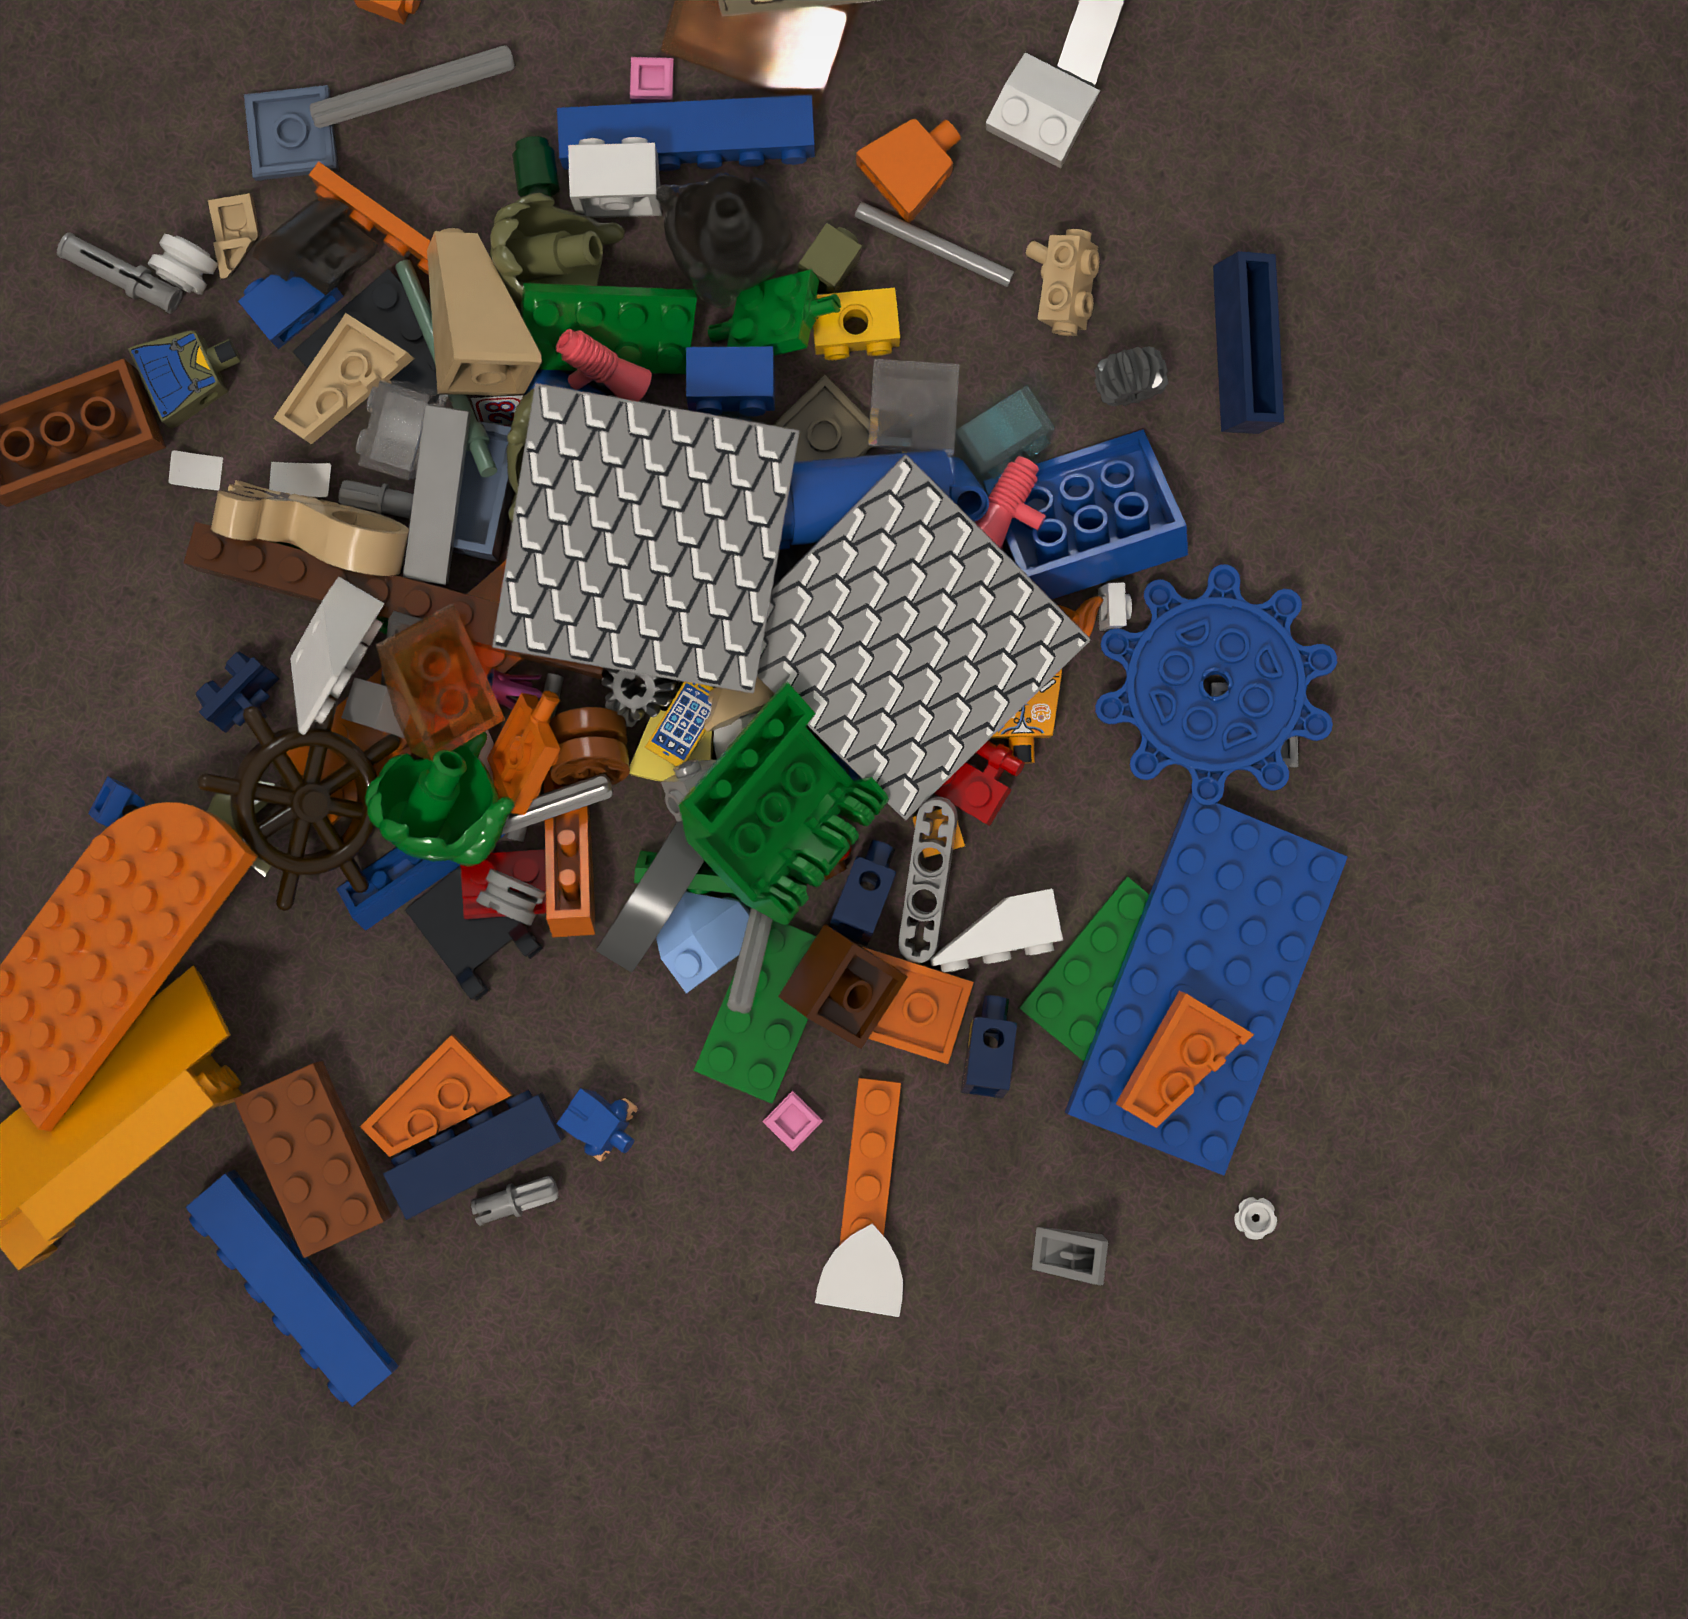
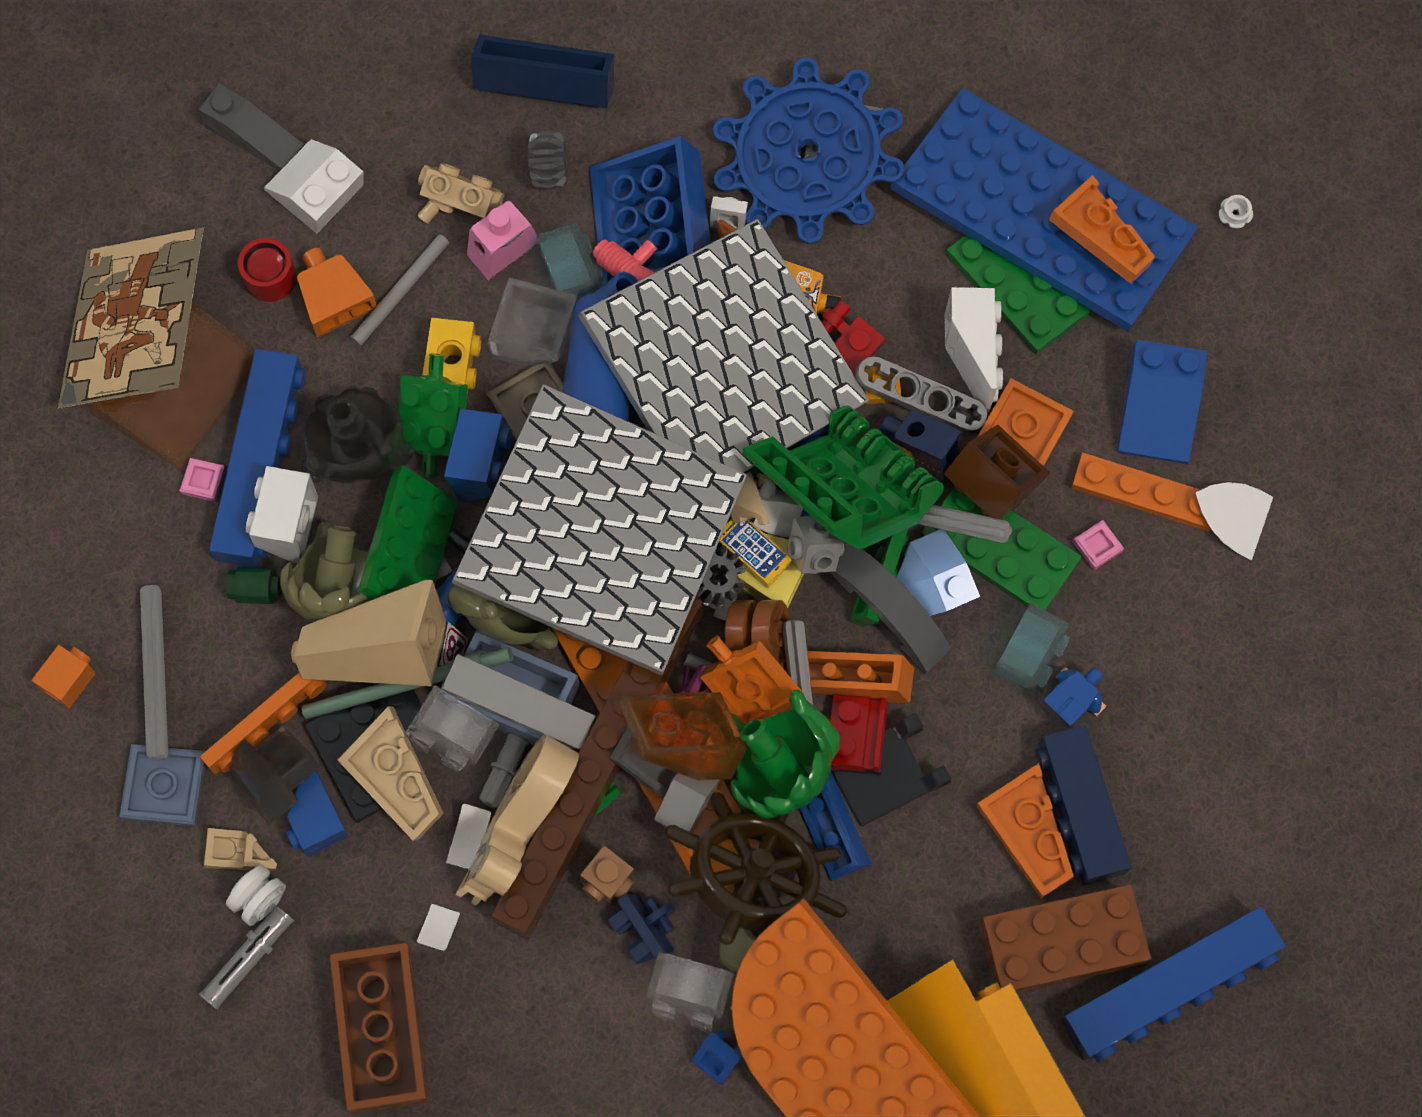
camera: 80 degrees left, 15 degrees down
(167, 755) = (688, 991): none -> clear brick
(183, 373) = (351, 916): torso -> none
(276, 638) = (606, 877): none -> medium nougat brick
(332, 649) = (636, 812): white slope -> none
(507, 901) = (872, 716): light grey wheel -> none
(514, 1200) = (1127, 780): light grey axle -> none
(601, 364) = (439, 550): coral piece -> none
(644, 1065) = (1031, 649): none -> clear light blue brick
(831, 258) = (390, 361): olive brick -> none
(919, 83) = (267, 269): none -> red piece
(983, 1166) = (1161, 401): none -> blue slope
(985, 1068) = (1071, 375): dark blue torso -> none
(1019, 347) = (504, 238): none -> bright pink torso
(1070, 1254) = (1244, 348): light grey slope -> none

